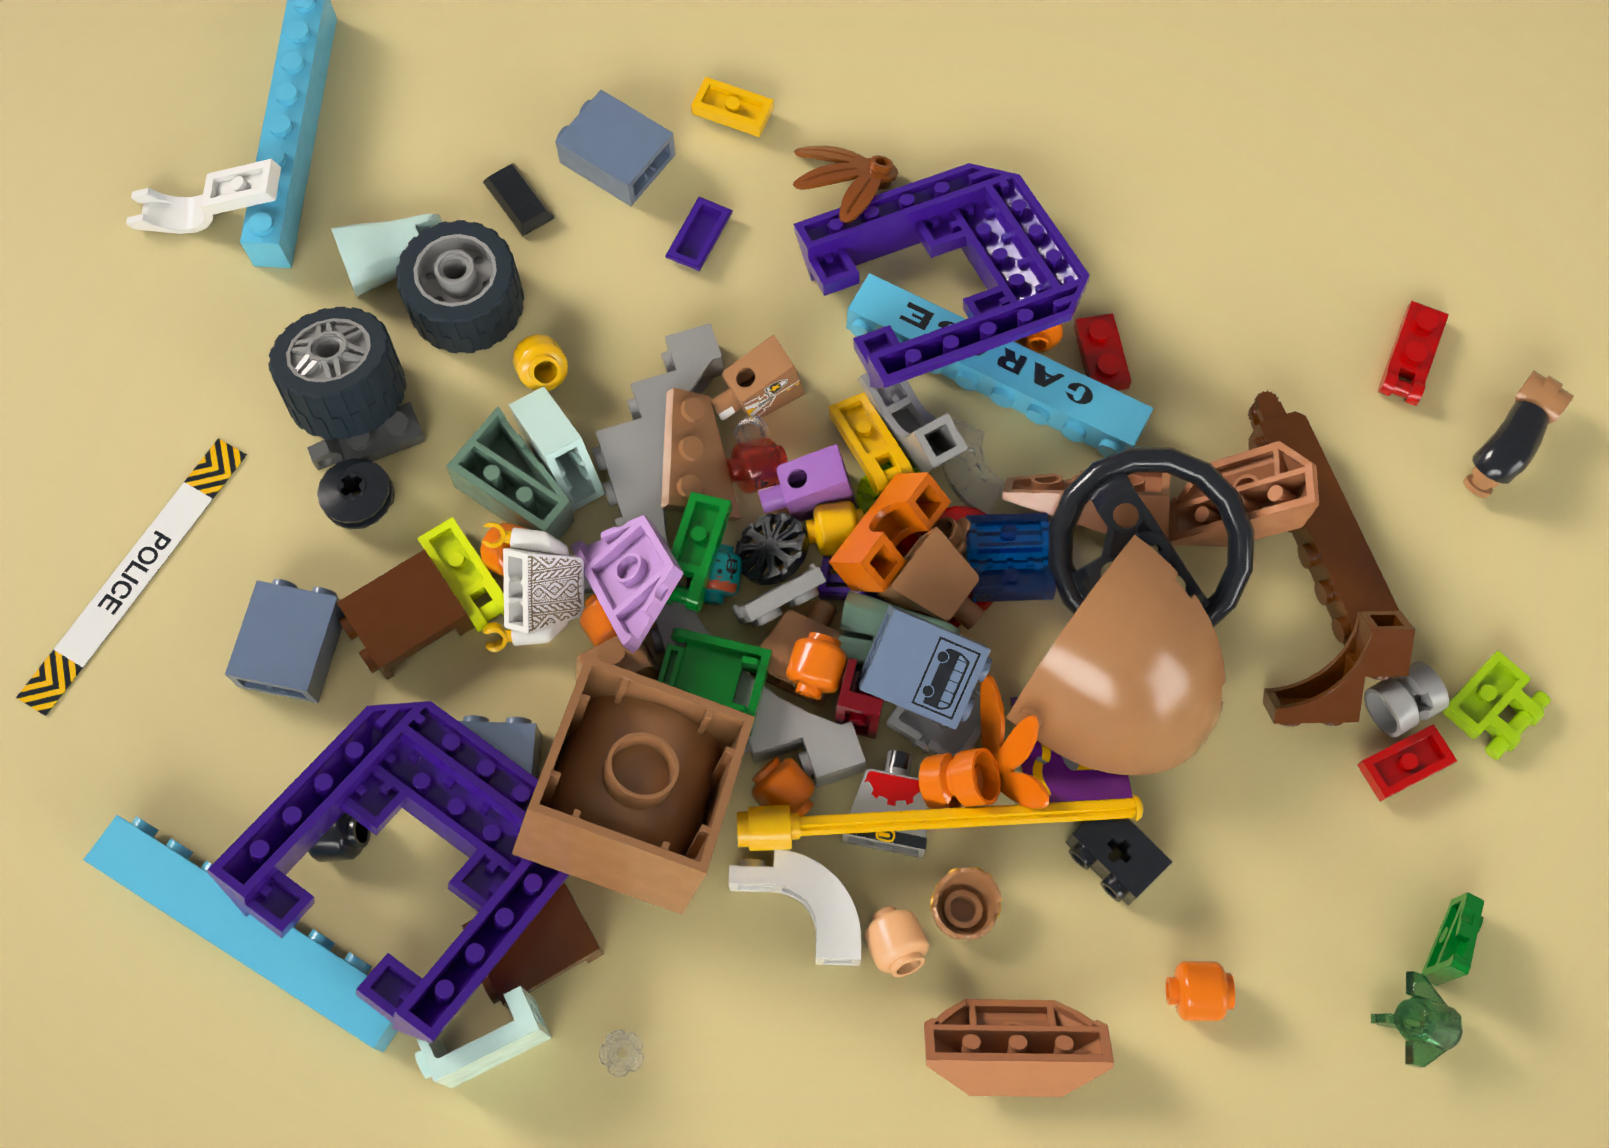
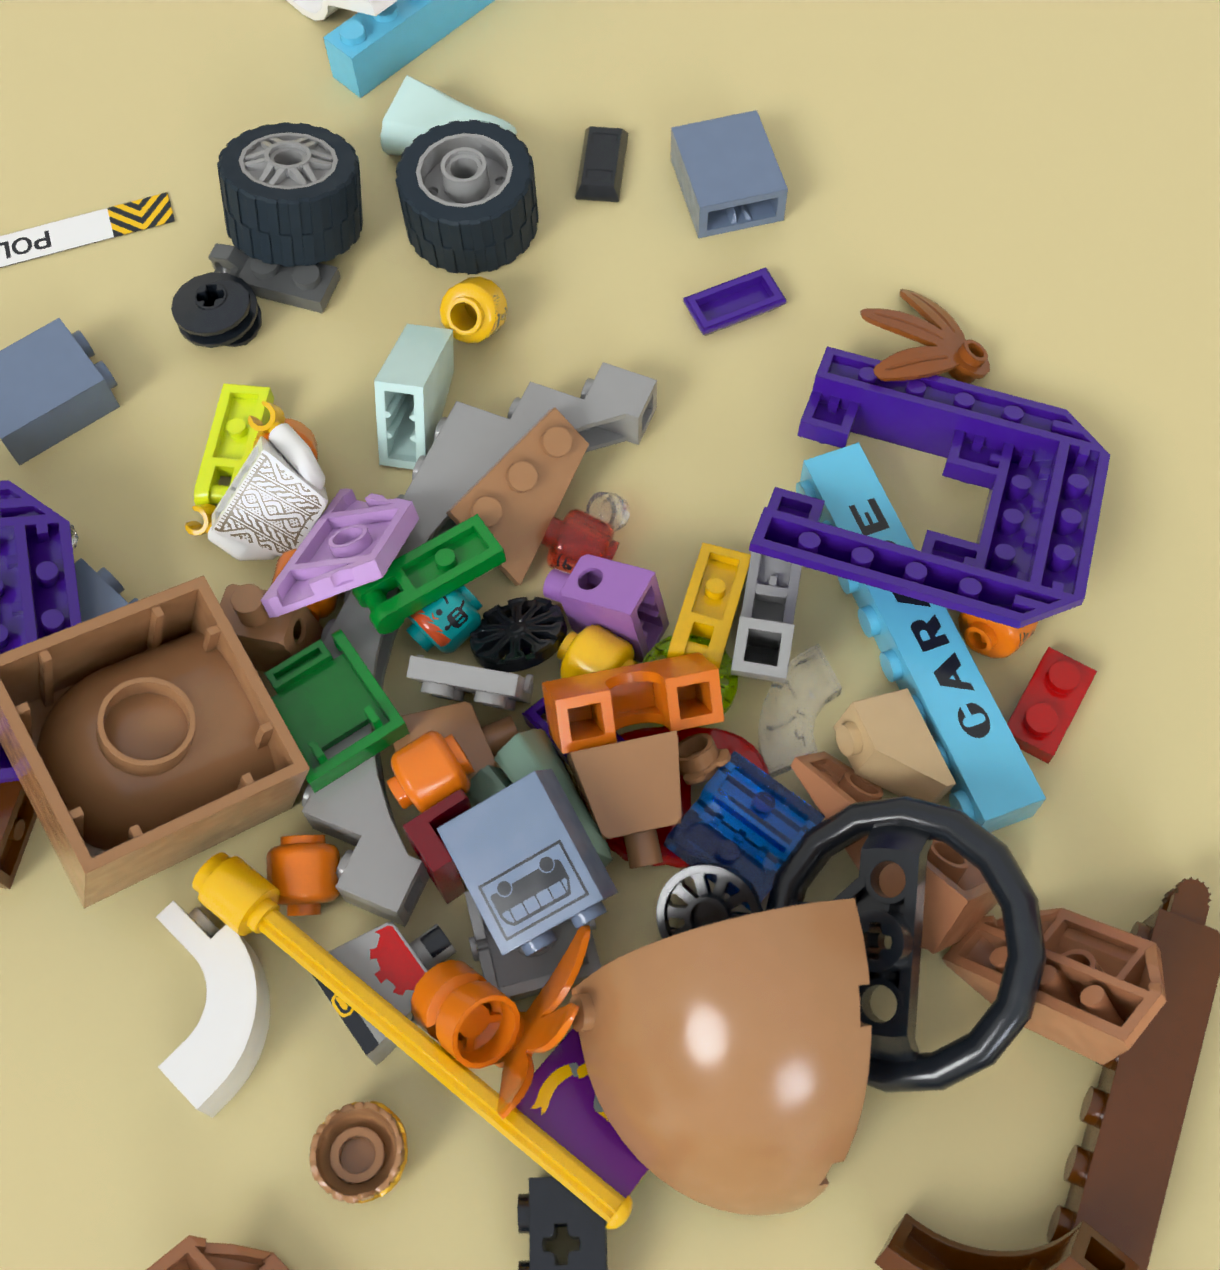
camera: 45 degrees right, 5 degrees down
(402, 613) = (145, 437): reddish brown panel -> none
(509, 480) = (338, 382): sand green wedge -> none
(732, 106) = (875, 209): yellow plate -> none
(759, 382) = (654, 469): medium nougat torso -> none
(896, 941) = (257, 1125): light nougat head -> none
(1033, 619) = (704, 906): none -> black wheel
(1047, 444) = (893, 746): none -> tan slope

